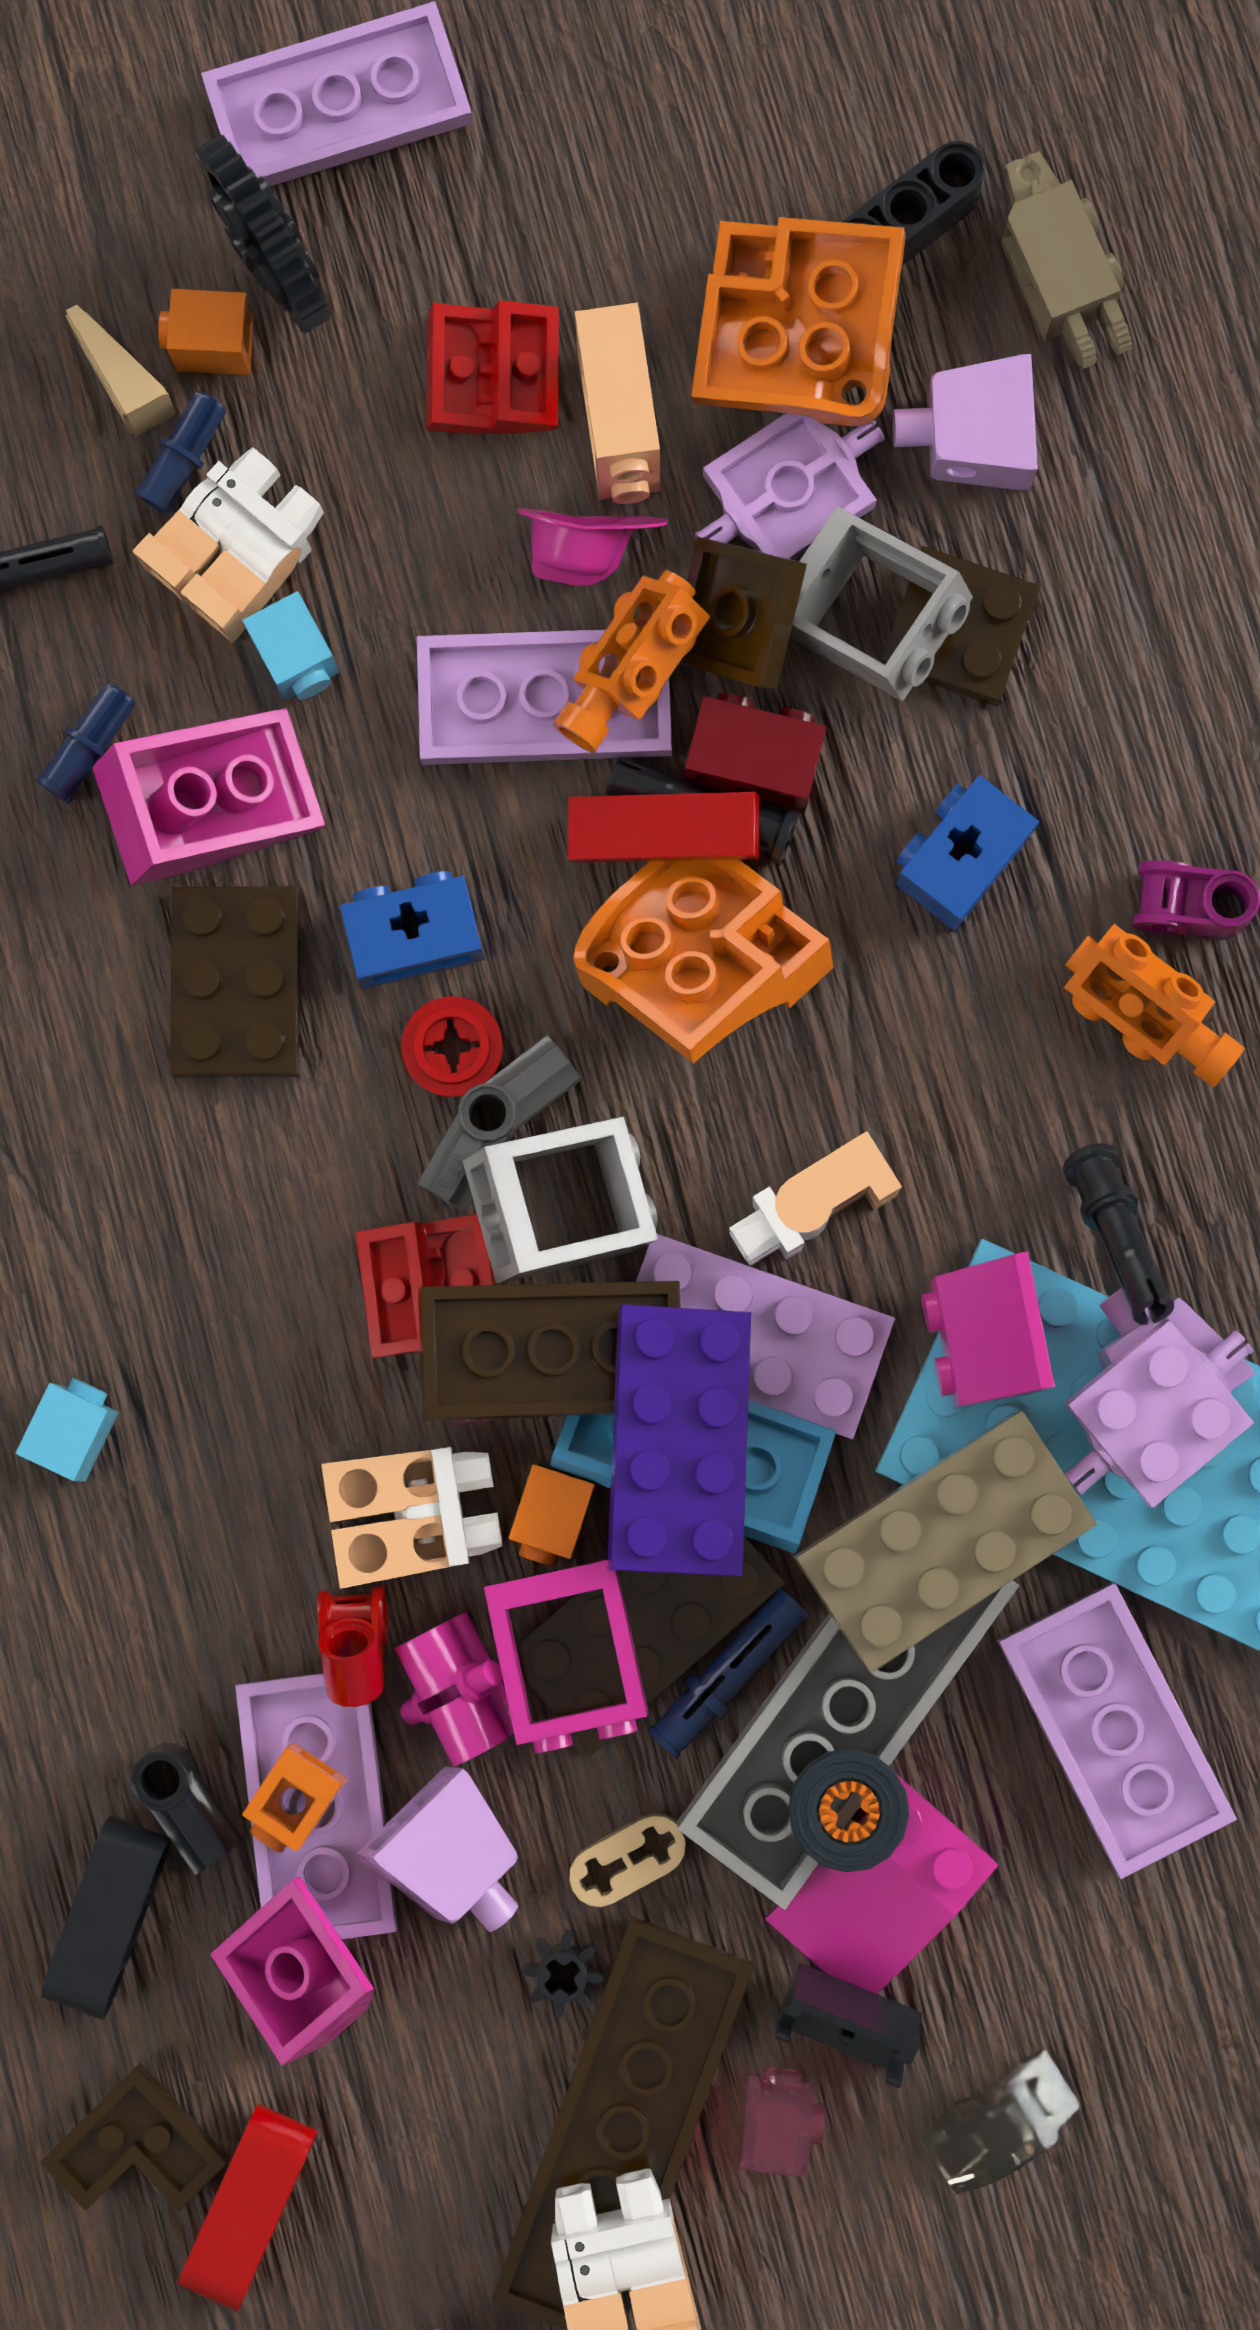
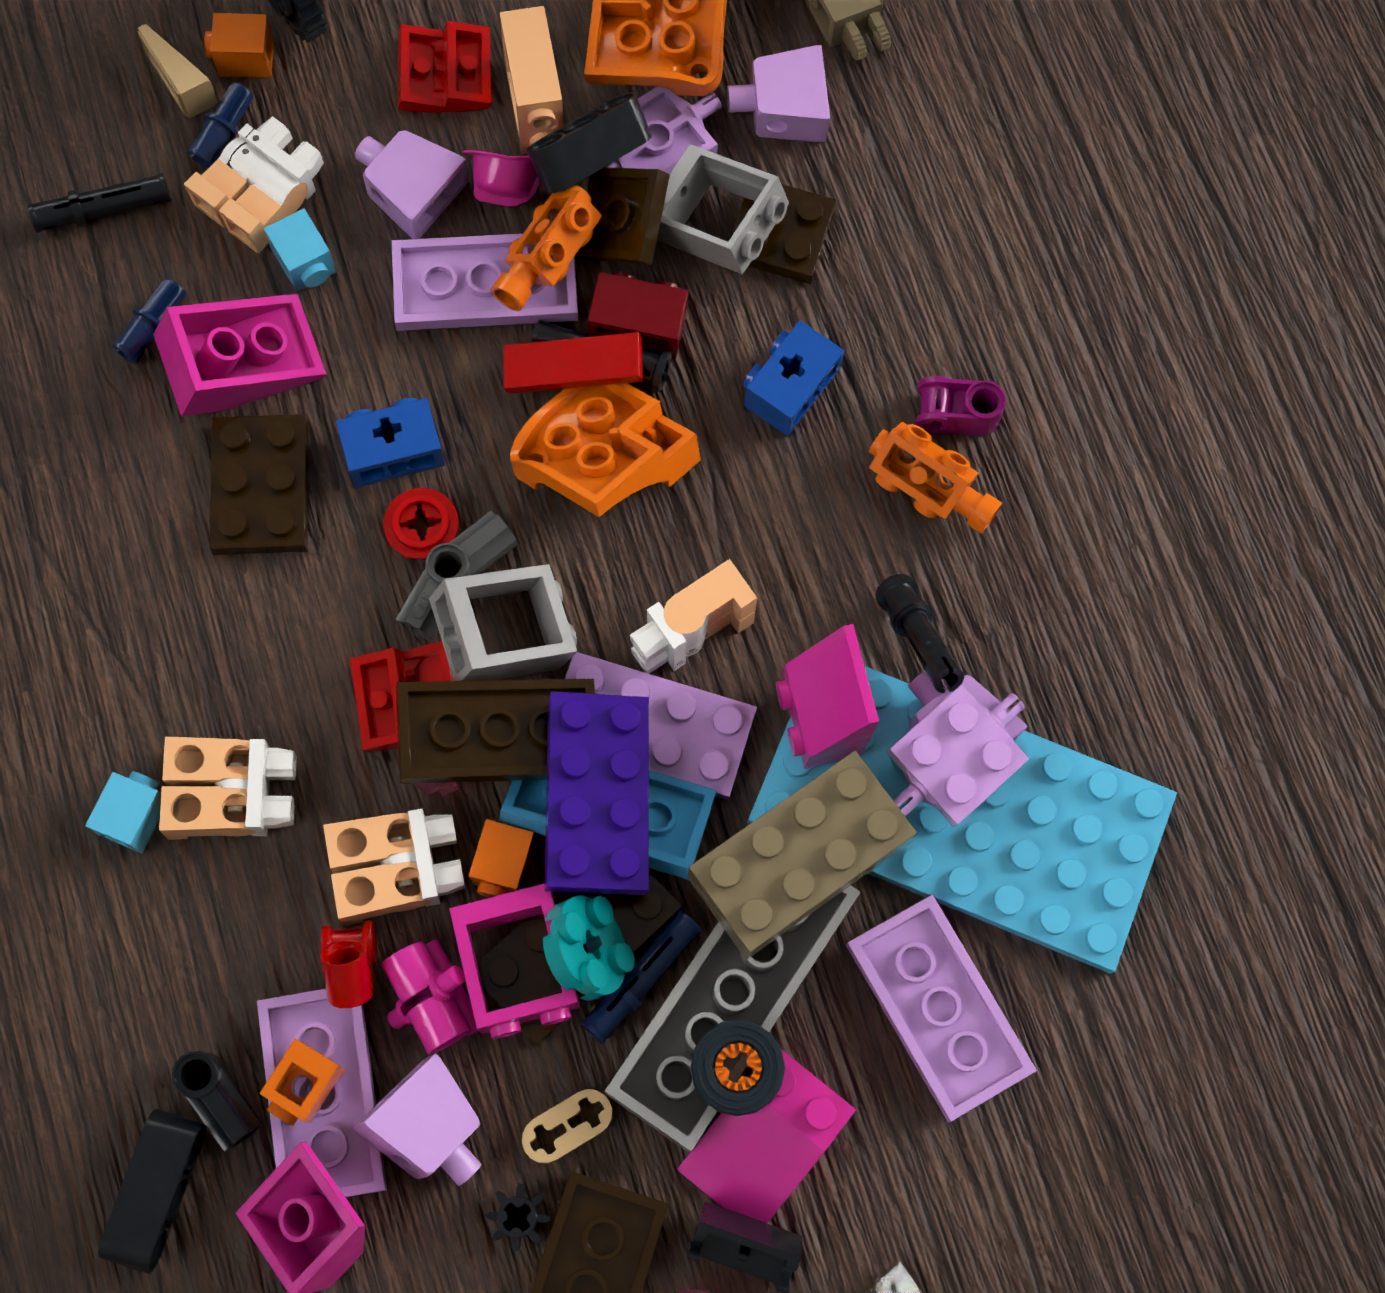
camera: 15 degrees left, 10 degrees down
(212, 1409) = (223, 787): none -> light nougat hips
(444, 542) = (411, 179): none -> lavender torso
(665, 1613) = (589, 923): none -> teal plate
(696, 508) = (589, 143): none -> black beam

